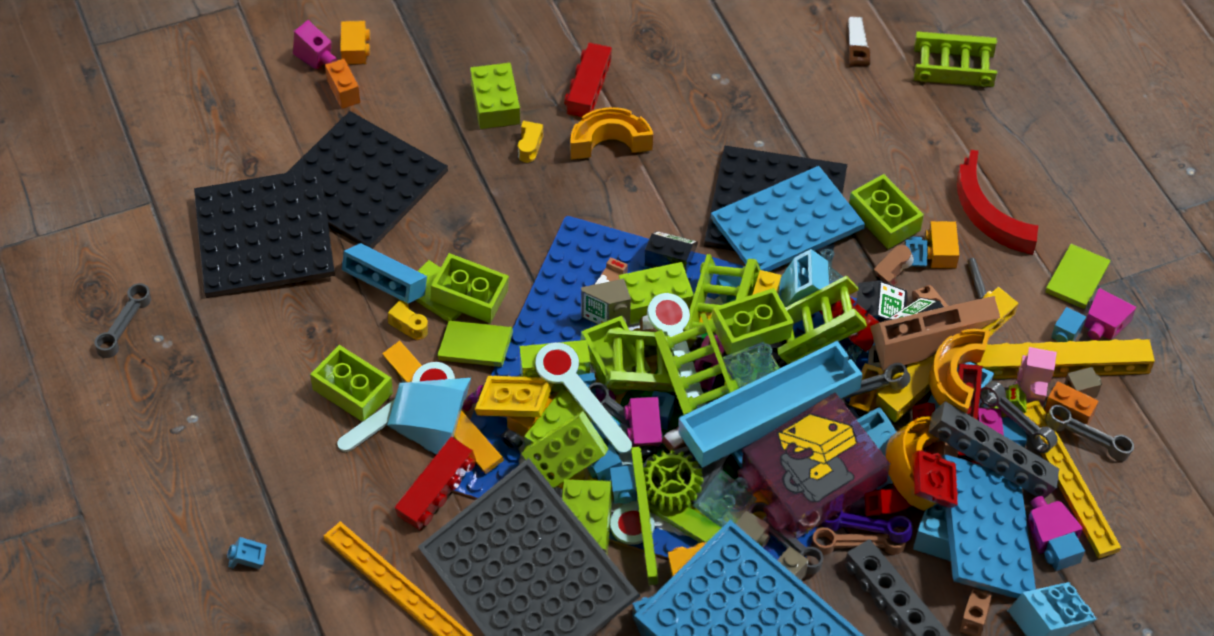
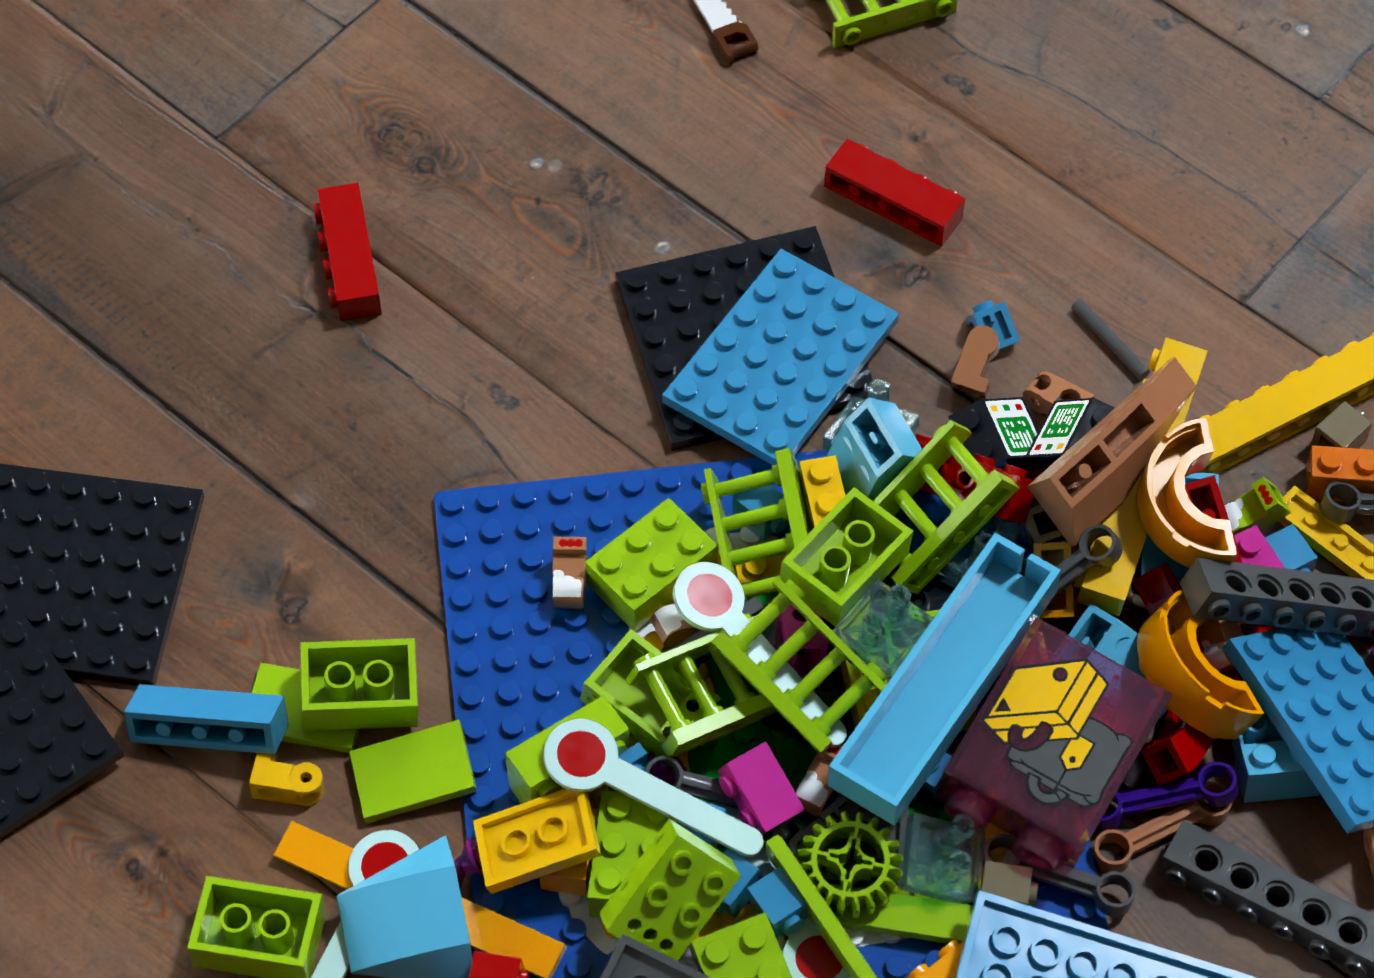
camera: 25 degrees left, 5 degrees up
(495, 95) = (215, 339): lime brick -> none
(511, 439) = (562, 908): black tile -> none
(530, 141) = (314, 399): yellow leg -> none
(606, 302) = (591, 617): dark tan slope -> none
(610, 124) = (426, 312): light orange brick -> none
(666, 407) = (763, 732): dark azure bracket -> none
(669, 249) = (632, 484): black slope -> none
(794, 562) = (1099, 910): dark tan brick -> none
(886, 211) = (918, 279): lime brick -> none
(901, 163) = (894, 192): none -> red brick
(935, 478) = (1245, 687): red plate -> none
(943, 244) = (1027, 296): light orange brick -> none
(986, 217) = (1060, 224): red arch -> none
(1018, 417) = (1294, 528): dark grey piece -> none
(1036, 373) = (1279, 447): bright pink arch -> none
(1068, 326) = (1273, 350): dark azure brick -> none
(1077, 276) = (1239, 263): lime tile -> none
(1108, 315) = (1315, 308): dark pink torso -> none

